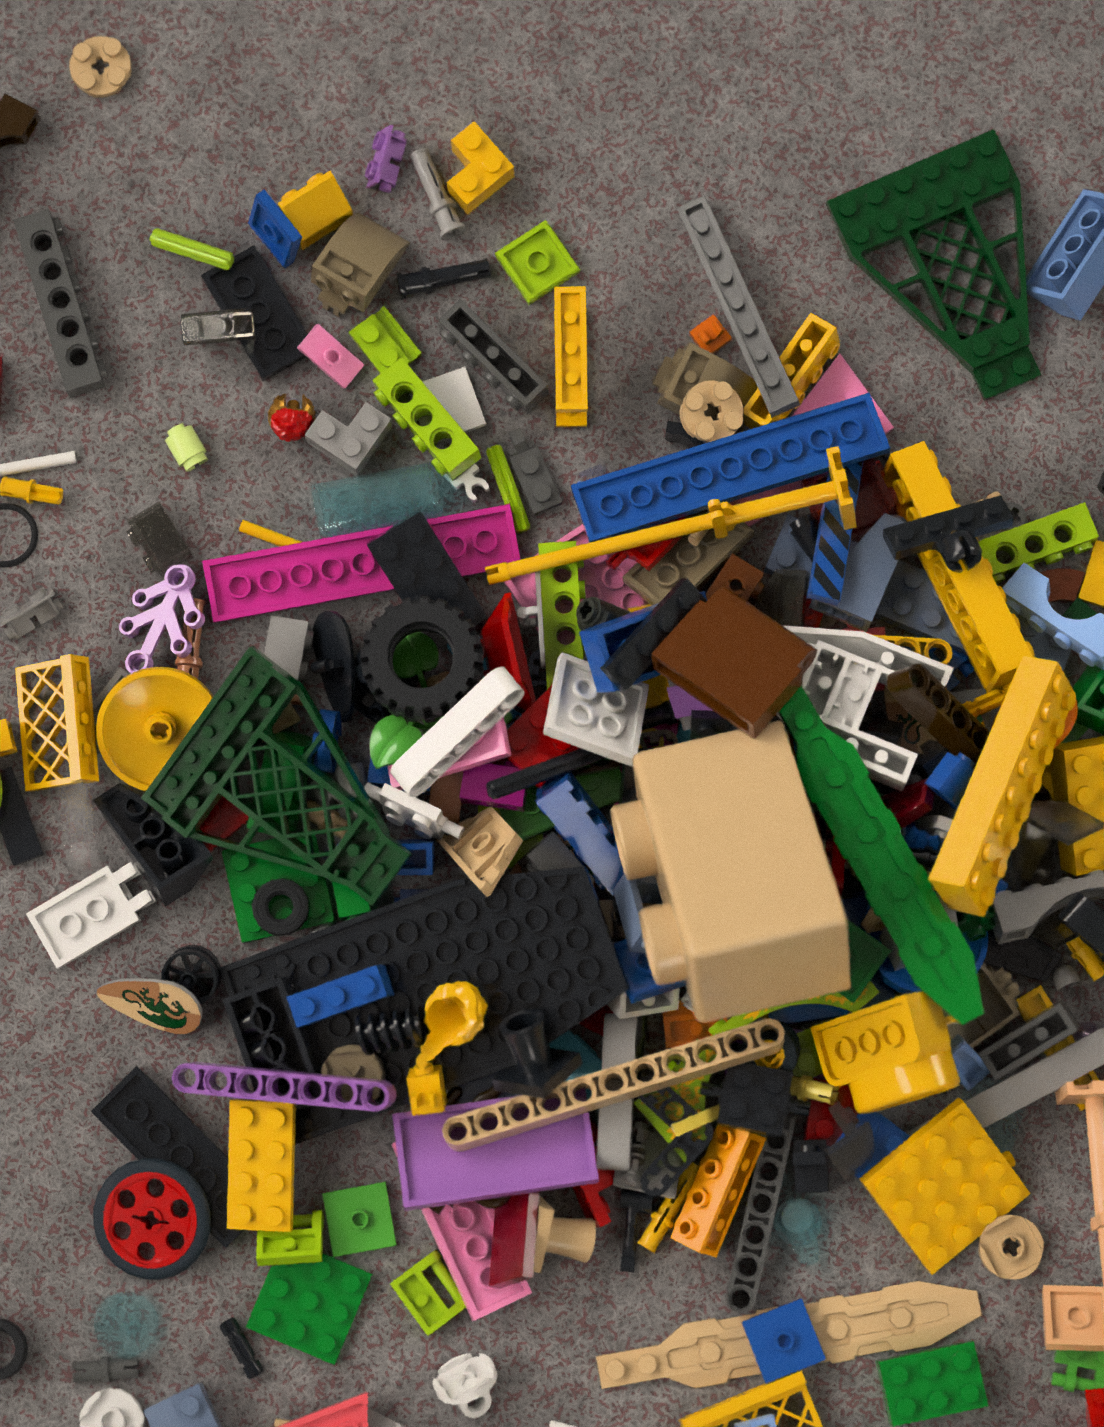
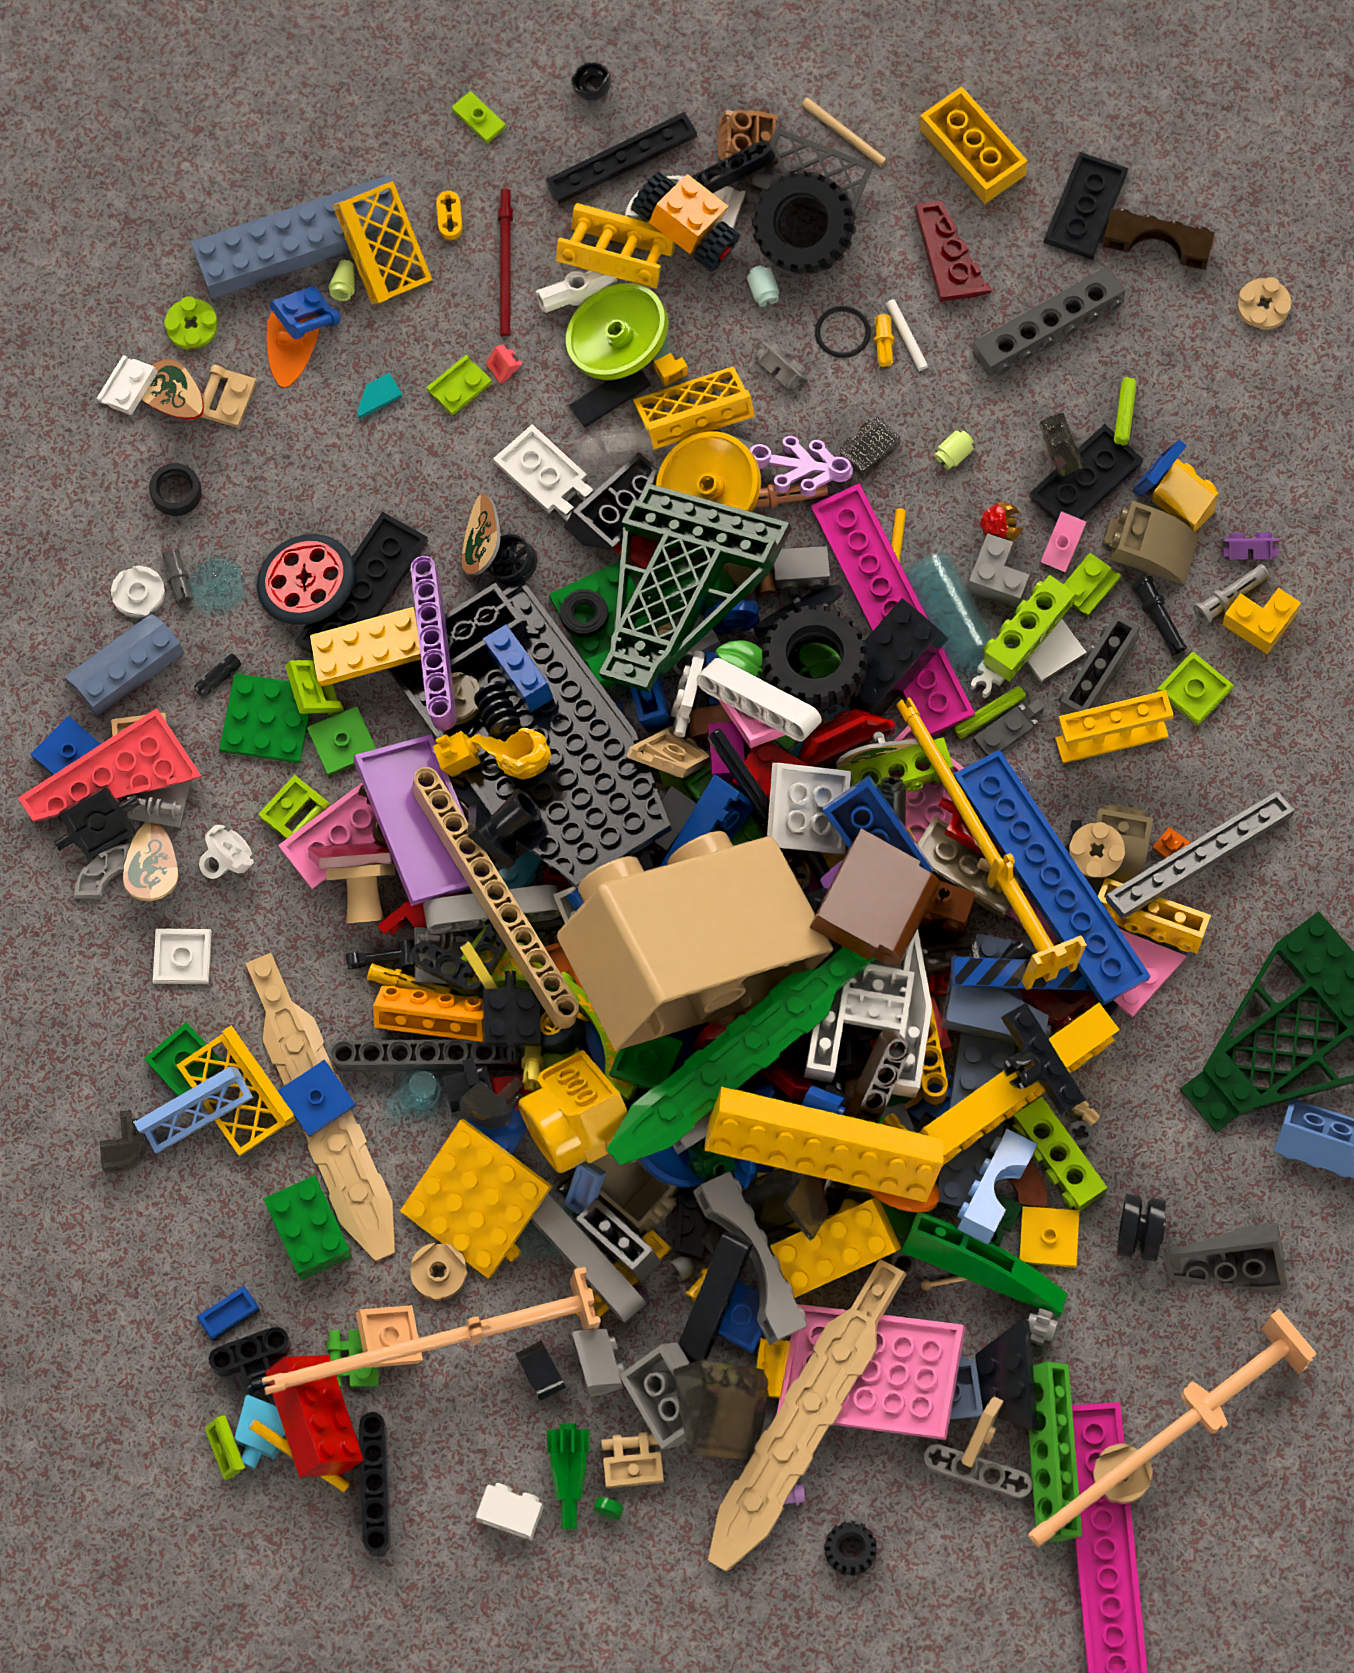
camera: 80 degrees right, 10 degrees down
(636, 651) = (855, 817): black plate -> none

